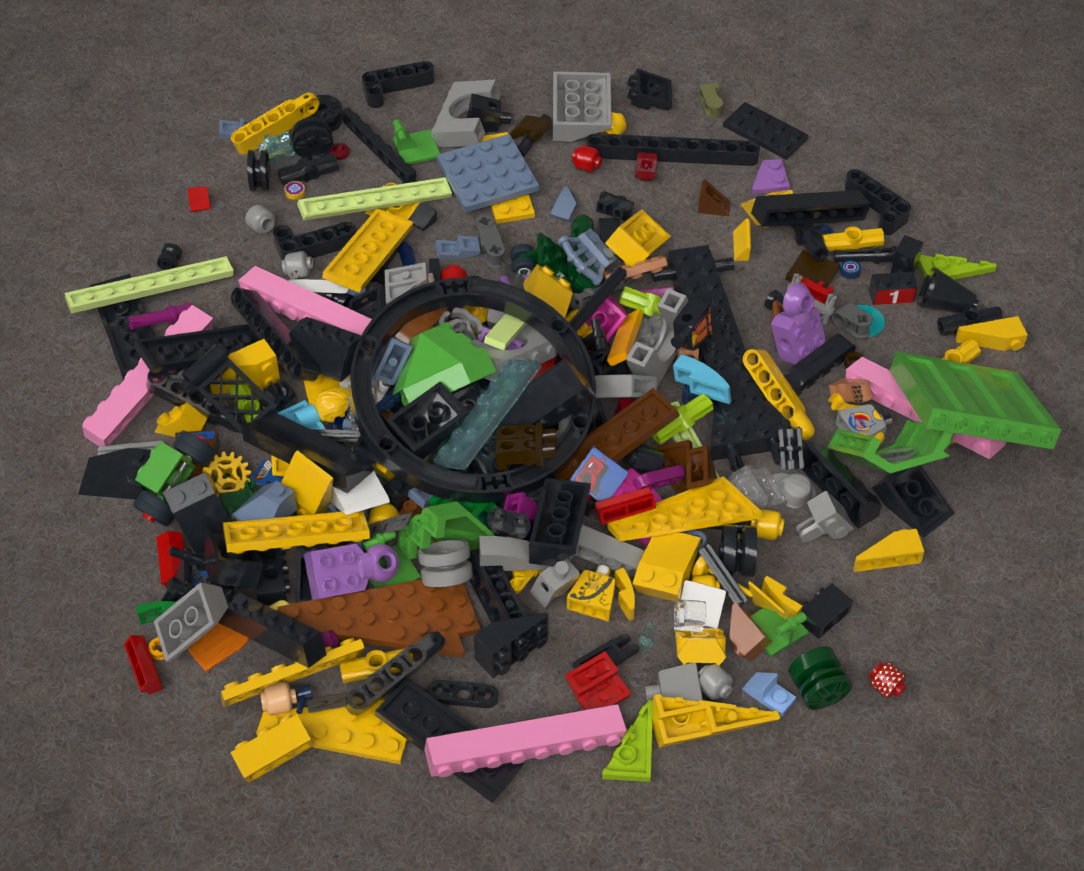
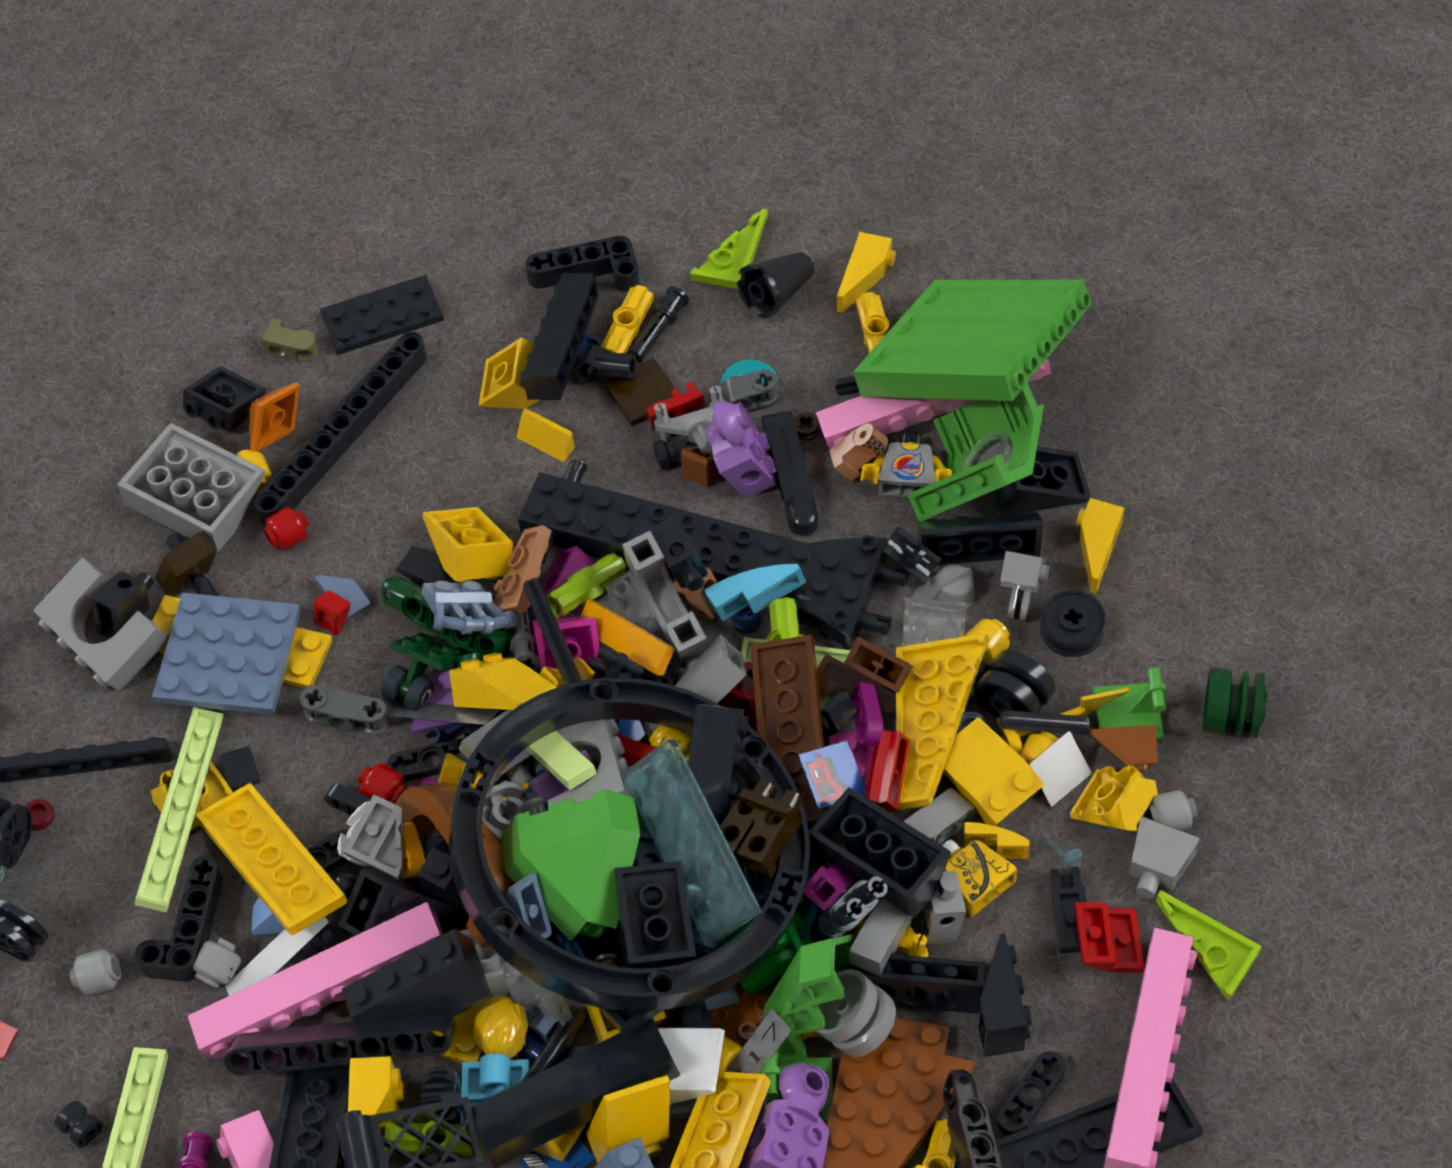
camera: 55 degrees left, 5 degrees up
(294, 190) = (68, 904): tile -> none
(308, 169) = (46, 868): black piece -> none
(407, 254) = (306, 823): clear blue cylinder -> none
(415, 146) = (105, 715): bright green plate -> none
(463, 247) = (323, 755): sand blue slope -> none
(549, 204) = (331, 611): none -> red slope
(615, 206) = (392, 539): black hips -> none
(646, 166) = (348, 472): dark red bracket -> none
(649, 113) = (273, 416): none -> orange slope
(686, 720) = (1208, 870): yellow wedge -> none
(690, 615) = (1068, 790): clear panel -> none
(712, 201) = (458, 433): reddish brown slope -> none
(767, 691) = (1209, 765): light blue slope -> none
(771, 177) = (462, 351): medium lavender wing -> none
(771, 388) = (805, 516): yellow piece -> none
(776, 592) = (1097, 682): yellow slope -> none
(816, 565) = (1087, 626): none -> black wheel
(825, 610) = (1137, 648): black brick -> none
(850, 269) = (666, 352): dark blue tile -> none
(887, 680) = (1264, 640): red head -> none
(892, 288) = (730, 326): black brick -> none
(907, 255) = (705, 288): black brick -> none
(950, 324) = (827, 281): black piece -> none

